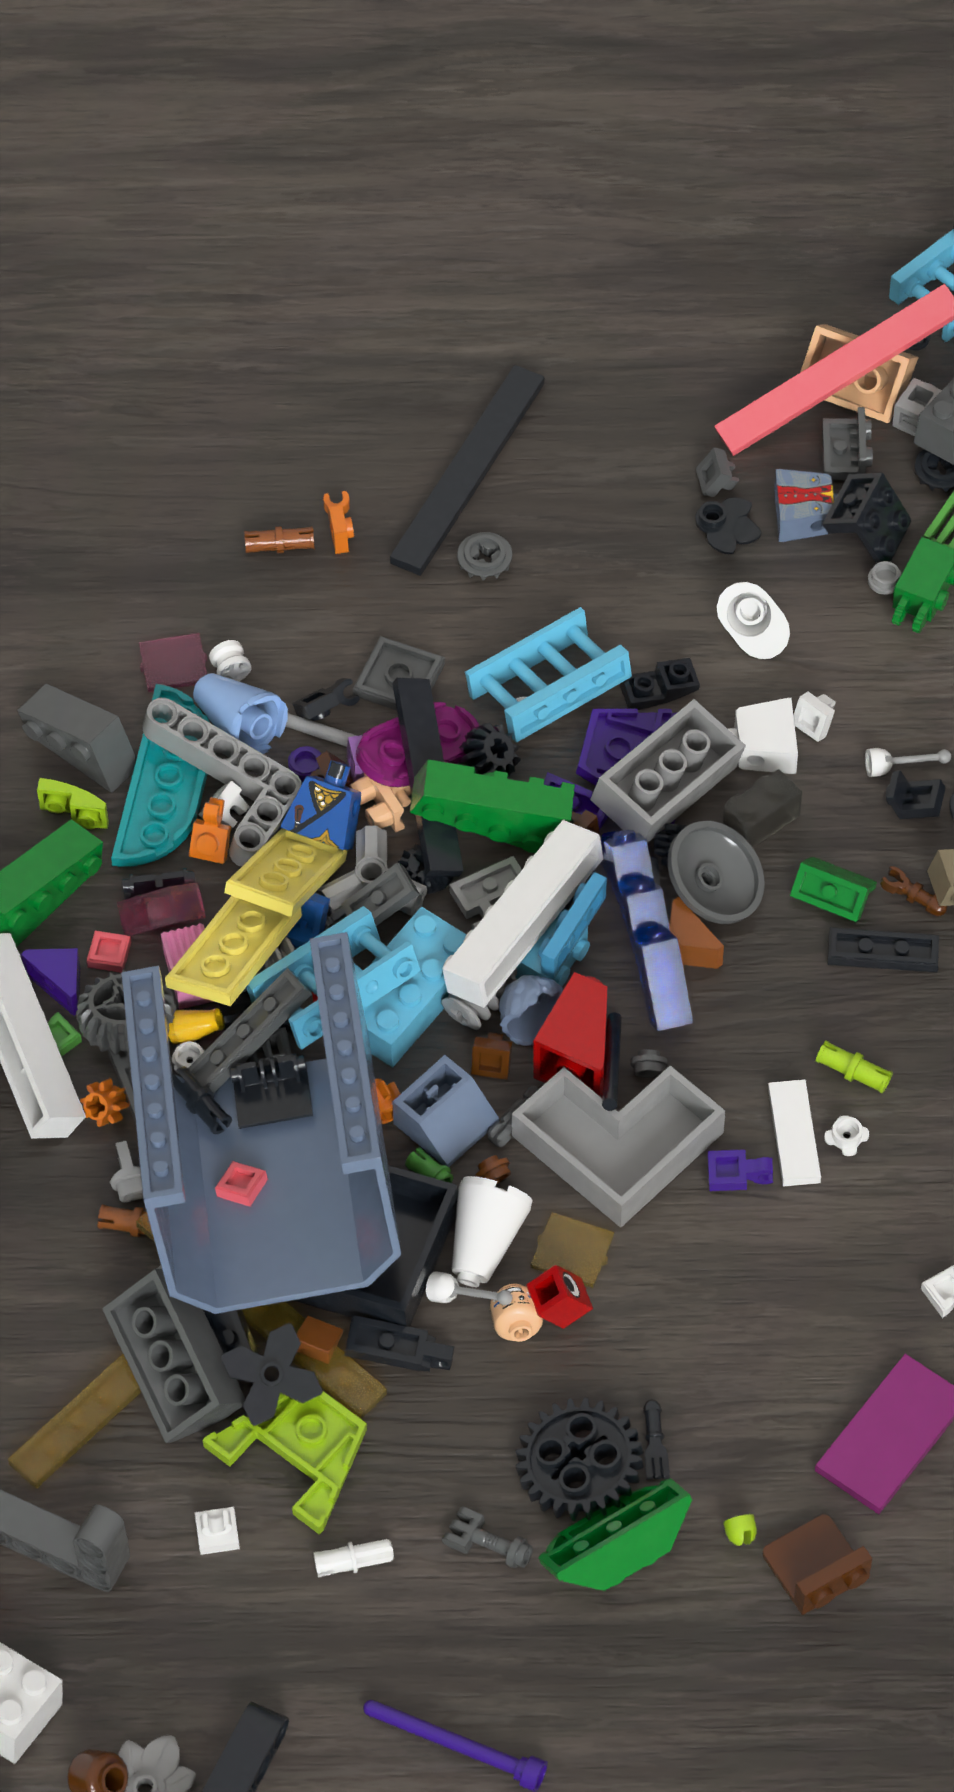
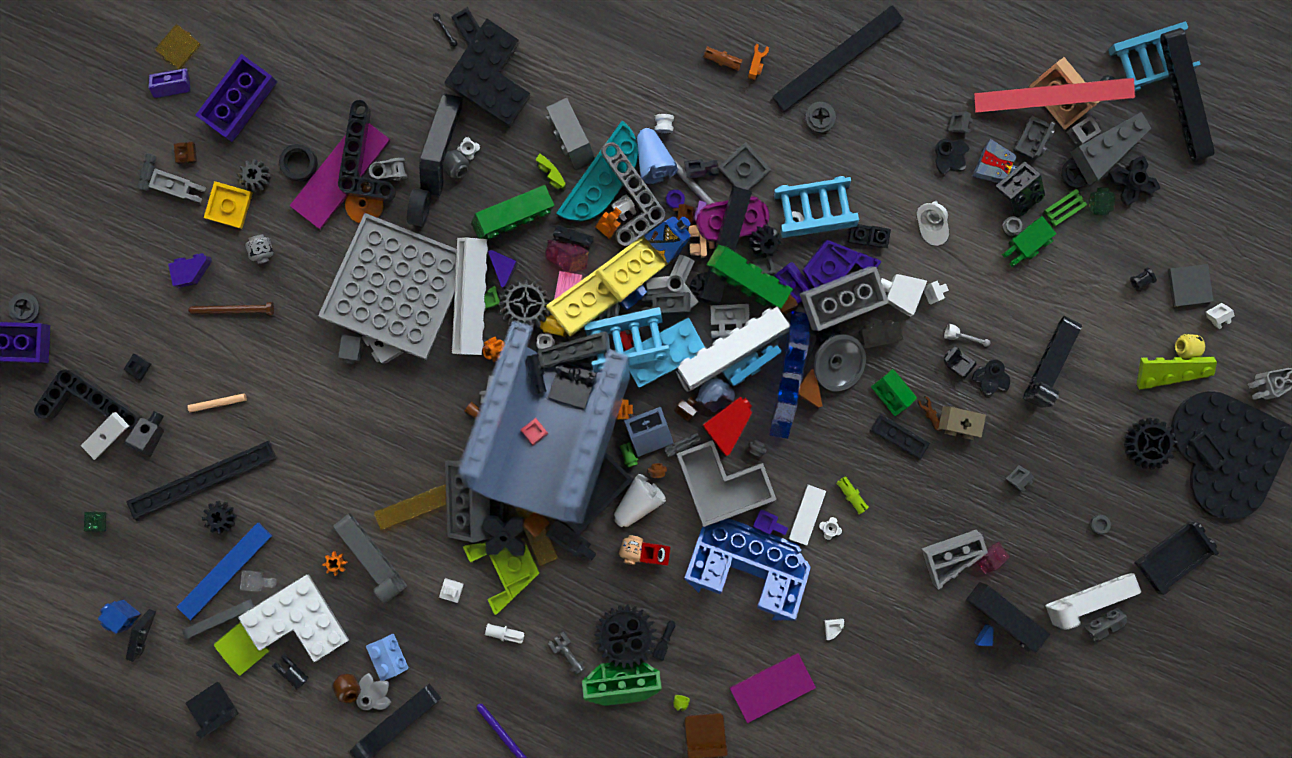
camera: 25 degrees right, 30 degrees up
(108, 951) = (534, 262): coral tile -> none
(148, 1695) = (387, 657): none -> light blue bracket
(173, 661) = (638, 107): clear pink piece -> none
(444, 1288) = (606, 521): hinge -> none
(574, 1247) = (675, 525): clear yellow piece -> none
(612, 1061) = (732, 456): black bar -> none
(700, 1235) = (754, 552): none -> blue slope

